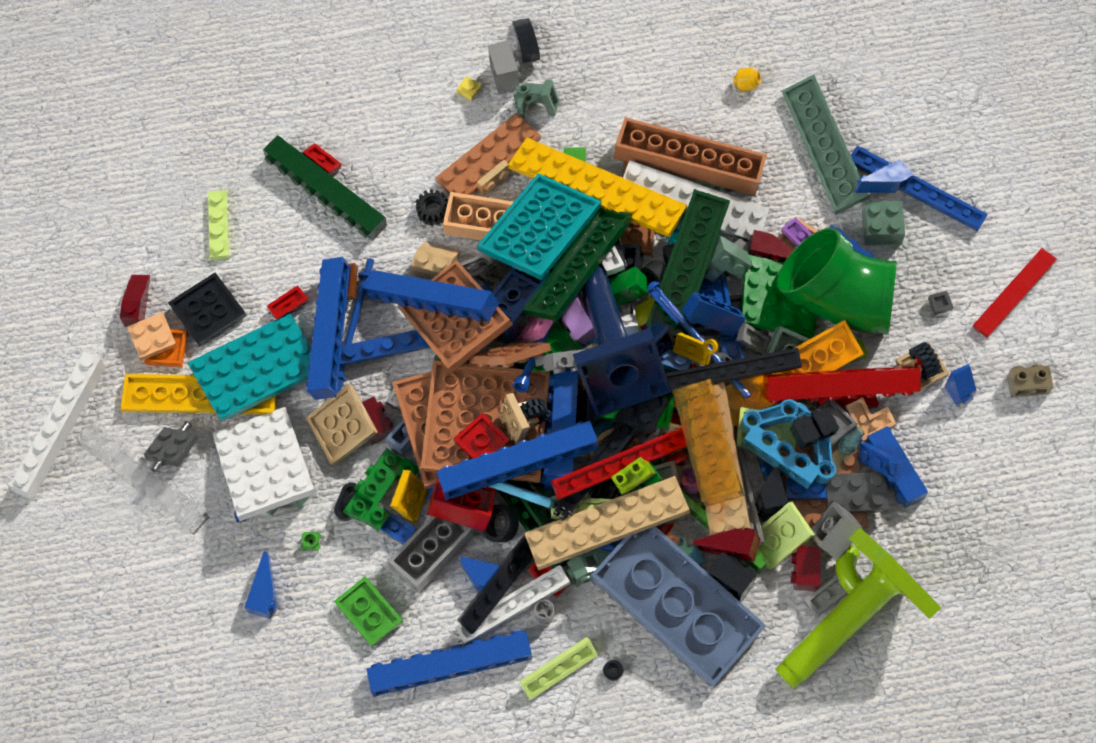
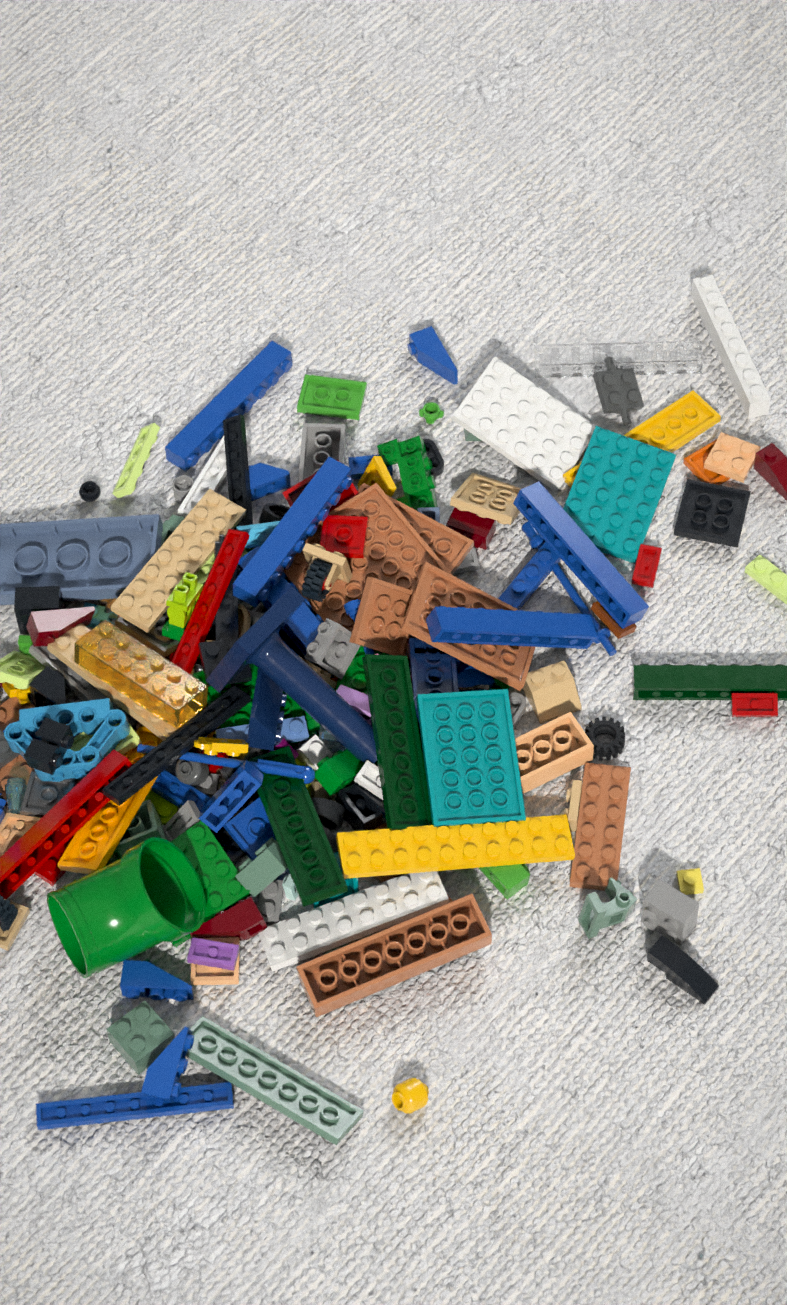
camera: 140 degrees right, 10 degrees down
(940, 302) = (23, 999): dark grey plate -> none

